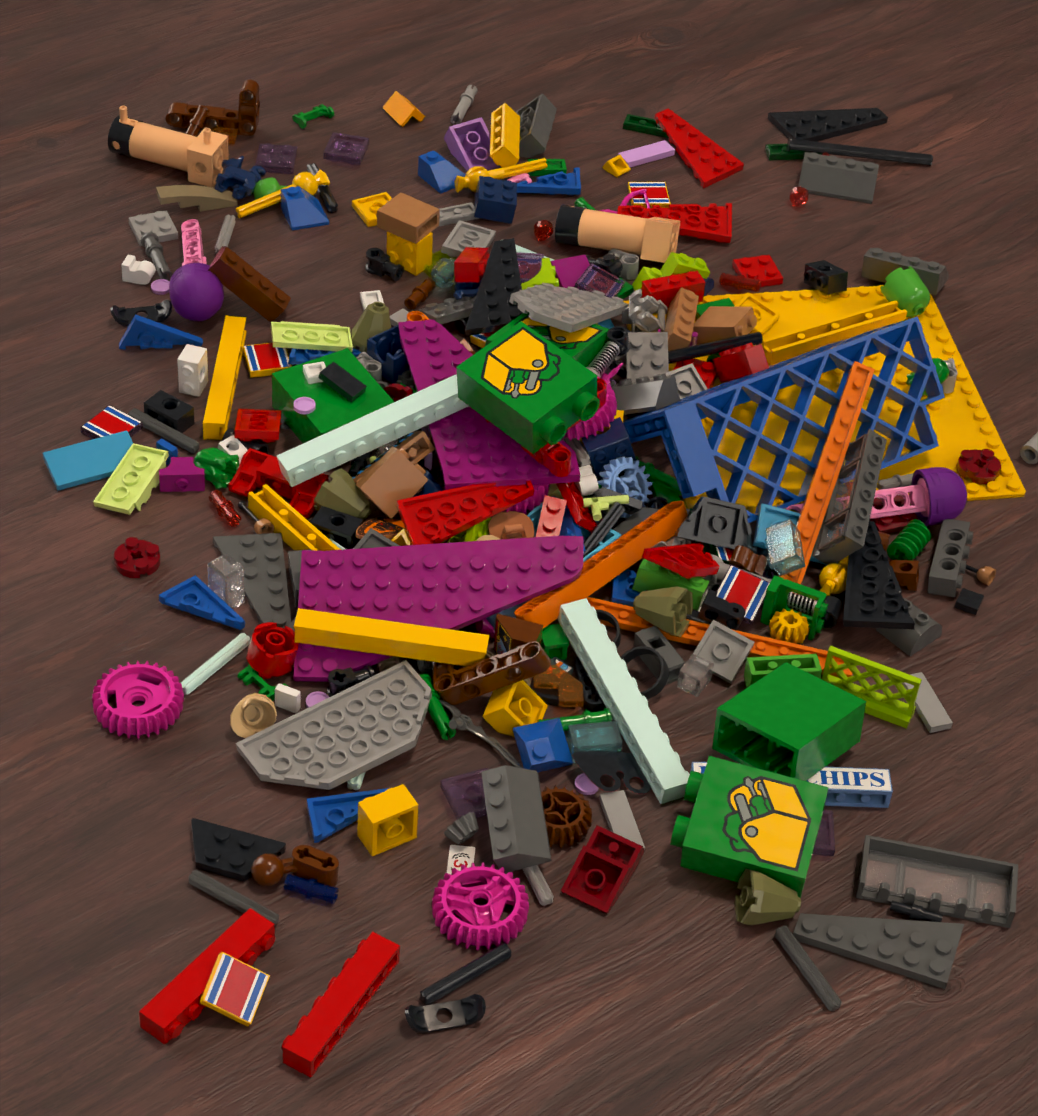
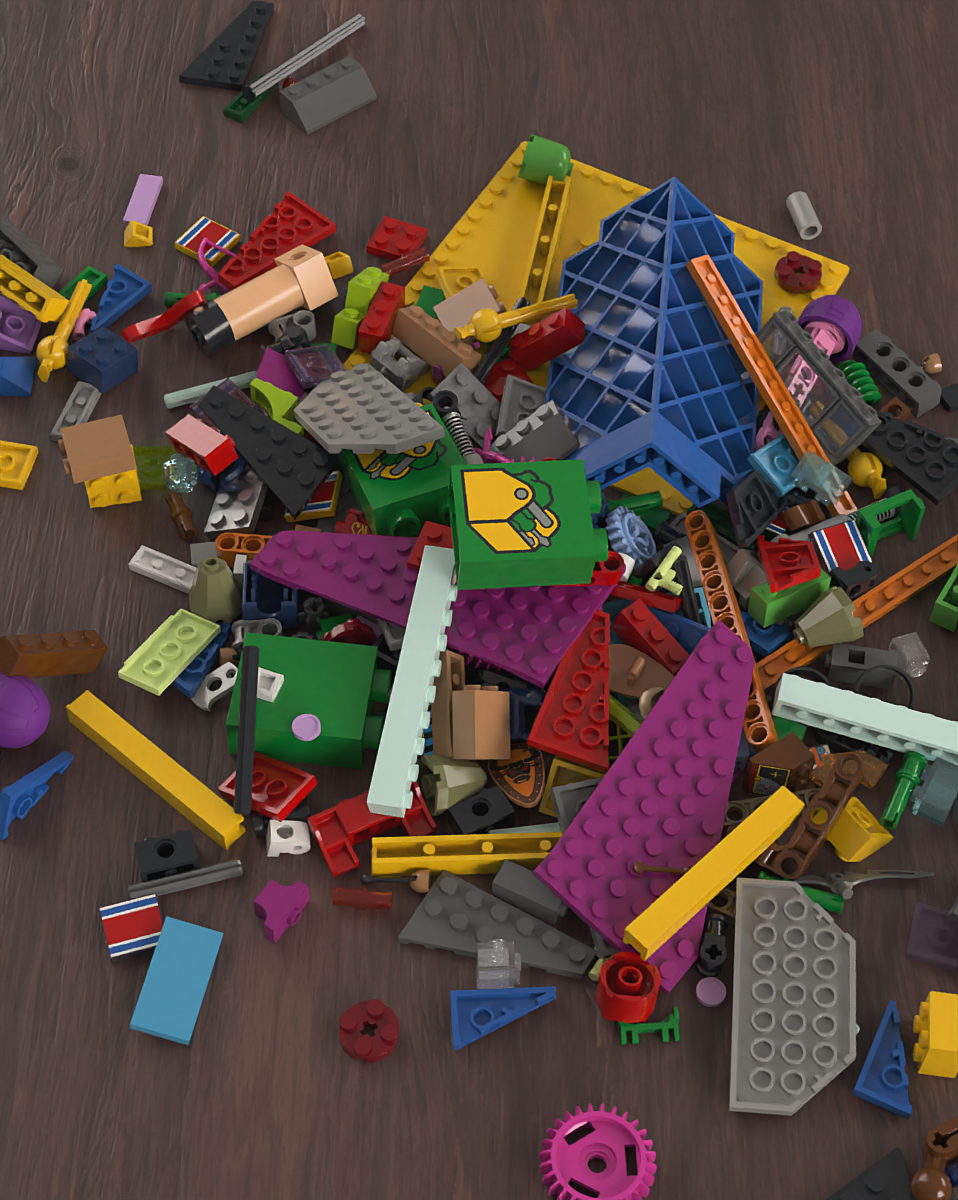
camera: 50 degrees left, 10 degrees up
(132, 479) = (246, 959): yellowish green piece -> none
(172, 450) = (231, 899): blue tile -> none
(192, 370) = (129, 793): white brick -> none
(215, 663) = (590, 1053): light aqua axle -> none
(217, 466) = (297, 863): green piece -> none
(252, 715) = (704, 1063): tan piece -> none
(265, 359) = (157, 715): tile -> none
(274, 381) = (246, 730): none -> black axle
(287, 698) = (697, 1017): white tile -> none
(342, 382) = (306, 671): black tile -> none
(357, 601) = (639, 867): none -> reddish brown hinge
(380, 264) = (105, 517): black connector -> none
(467, 235) = (144, 422): light grey plate -> none
(543, 230) = (181, 353): clear red tile -> none
(543, 745) = (920, 839): blue slope -> none
(547, 204) = (164, 321): none -> red beam
(643, 125) = (104, 169): dark green tile -> none
(700, 153) = (176, 160): red wing -> none
(707, 256) = (339, 264): none -> yellow slope
(714, 327) = (487, 324): none -> yellow piece
(724, 649) = (898, 613): light grey plate -> none
(789, 626) = (897, 544): yellow gear -> none
(798, 196) = (323, 138): clear red tile -> none
(825, 277) = (463, 199): black brick -> none
(879, 264) = (504, 143): dark grey slope -> none

